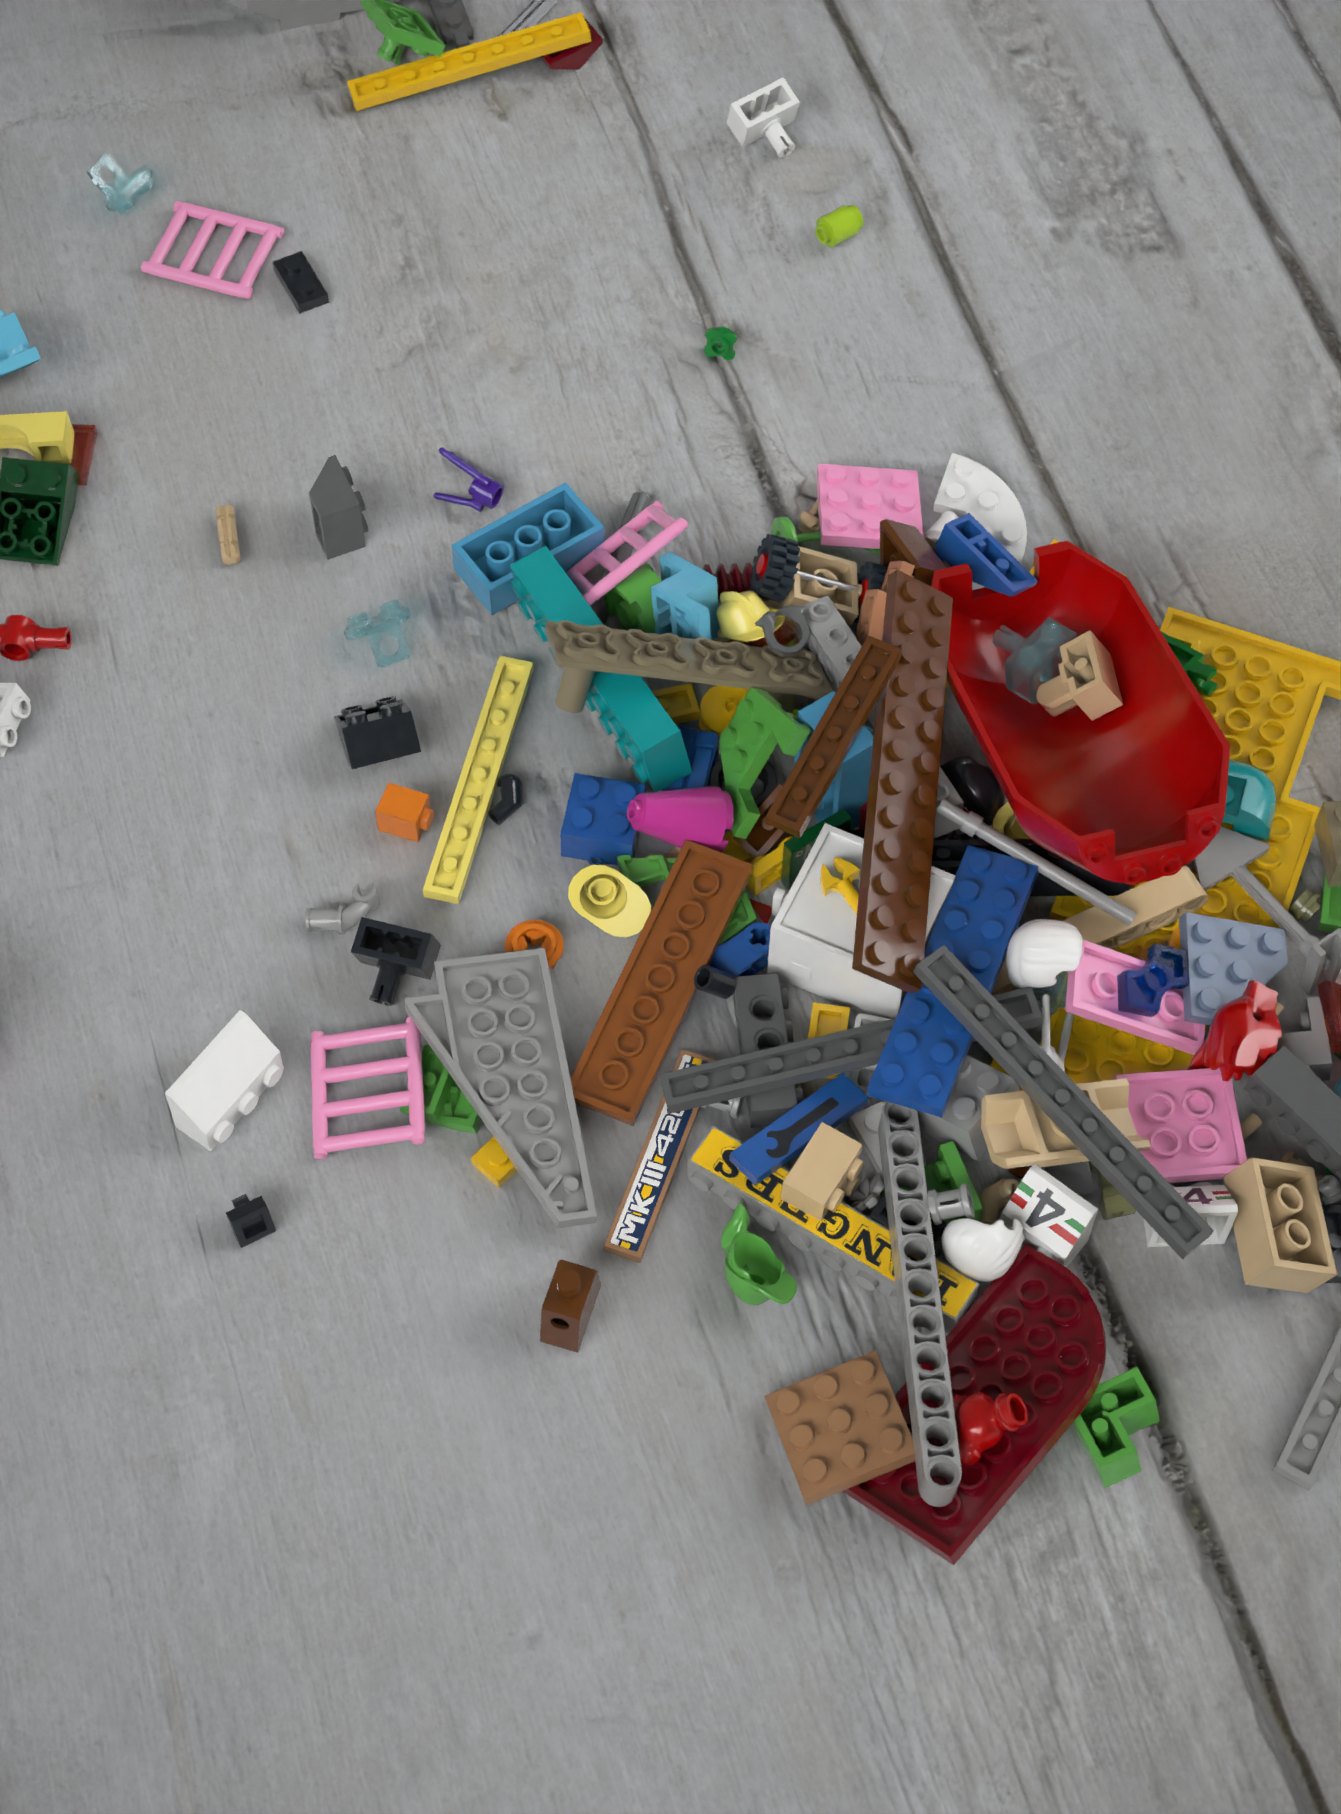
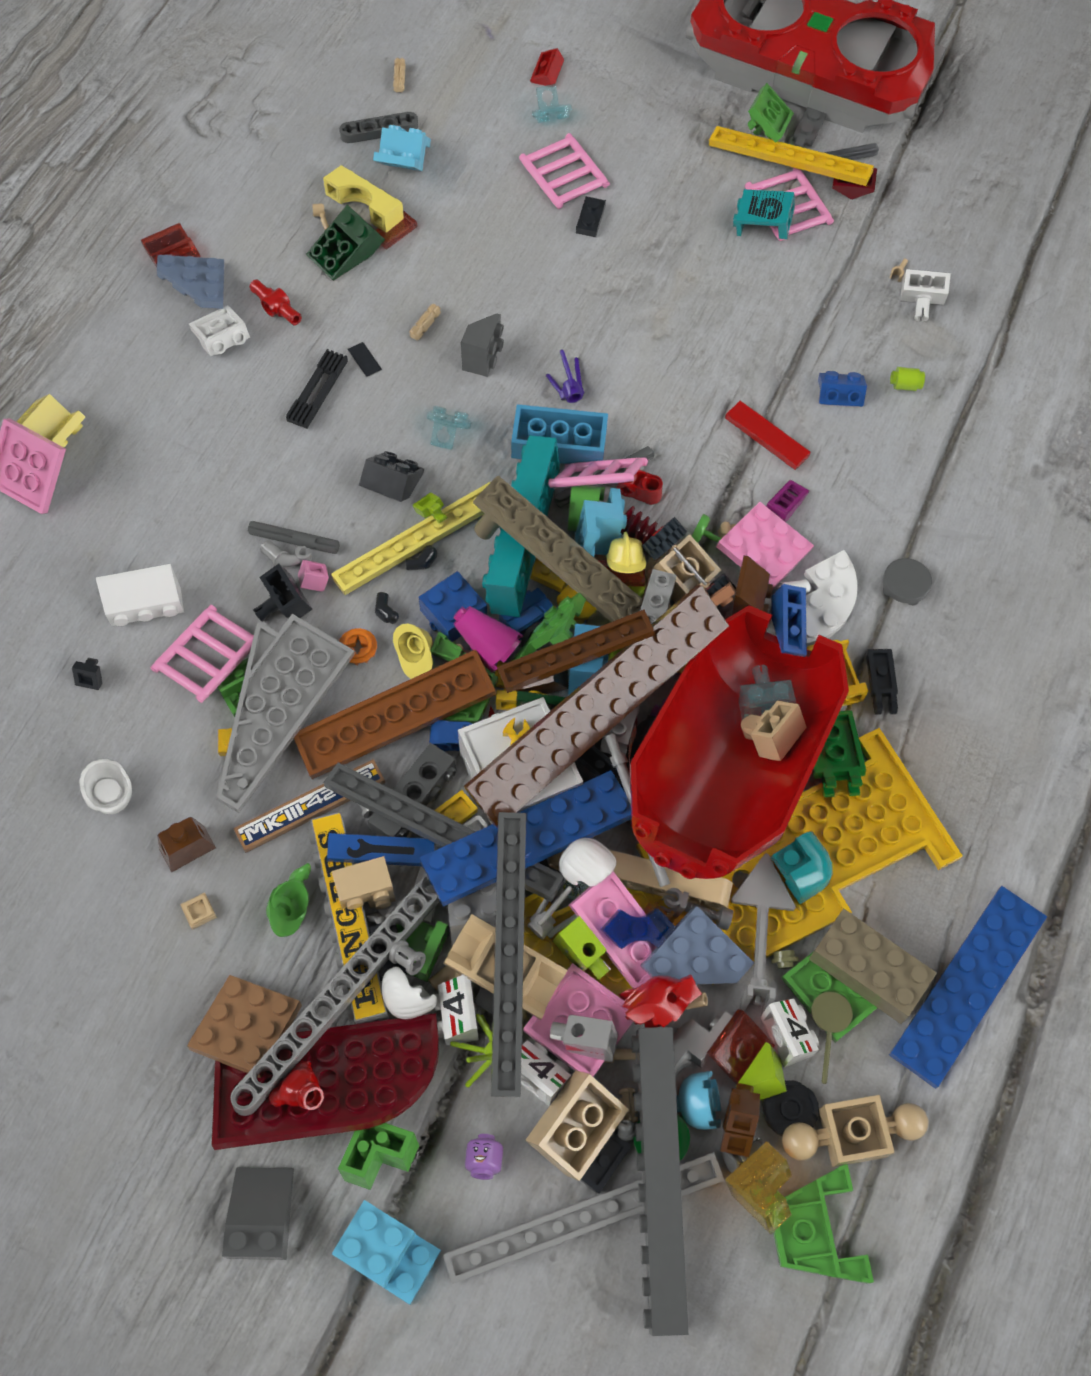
camera: 40 degrees right, 5 degrees up
(64, 142) = (547, 67): none -> red slope
(166, 661) = (302, 413): none -> black container
(195, 628) = (364, 359): none -> black sticker
(329, 886) = (293, 537): none -> dark grey axle
(400, 908) = (313, 575): none -> bright pink slope
(404, 812) = (363, 527): orange brick -> none
(414, 1317) = (105, 786): none -> white piece
(457, 730) = (429, 506): none -> lime plate
(503, 141) = (765, 208): none -> teal panel
(516, 89) = (806, 187): none -> bright pink bar
(522, 886) = (383, 611): none -> black arm
(655, 1364) = (198, 911): none -> tan tile
(685, 545) = (640, 487): none -> red piece
(711, 114) = (898, 270): none -> tan hand
(715, 981) = (417, 737): black hinge -> none
(720, 335) = (775, 398): green plate -> none
(749, 389) = (767, 435): none -> red tile
(767, 623) = (645, 572): dark grey piece -> none
(780, 283) = (842, 389): none -> blue bracket
(840, 448) = (784, 502): none -> magenta slope
(1046, 439) = (907, 581): none -> dark grey tile
(1054, 1598) = (259, 1214): none -> dark grey slope
(1108, 1048) = (578, 937): none -> lime torso
(1120, 1232) = (487, 1051): none -> lime plant
(1123, 556) = (882, 679): none -> black hinge
(1165, 924) = (722, 917): none -> flat silver bar
(1213, 1124) = (597, 1040): none -> light grey torso
(1218, 1340) = (484, 1157): none -> medium lavender head
(1222, 1511) = (386, 1252): none -> medium azure bracket

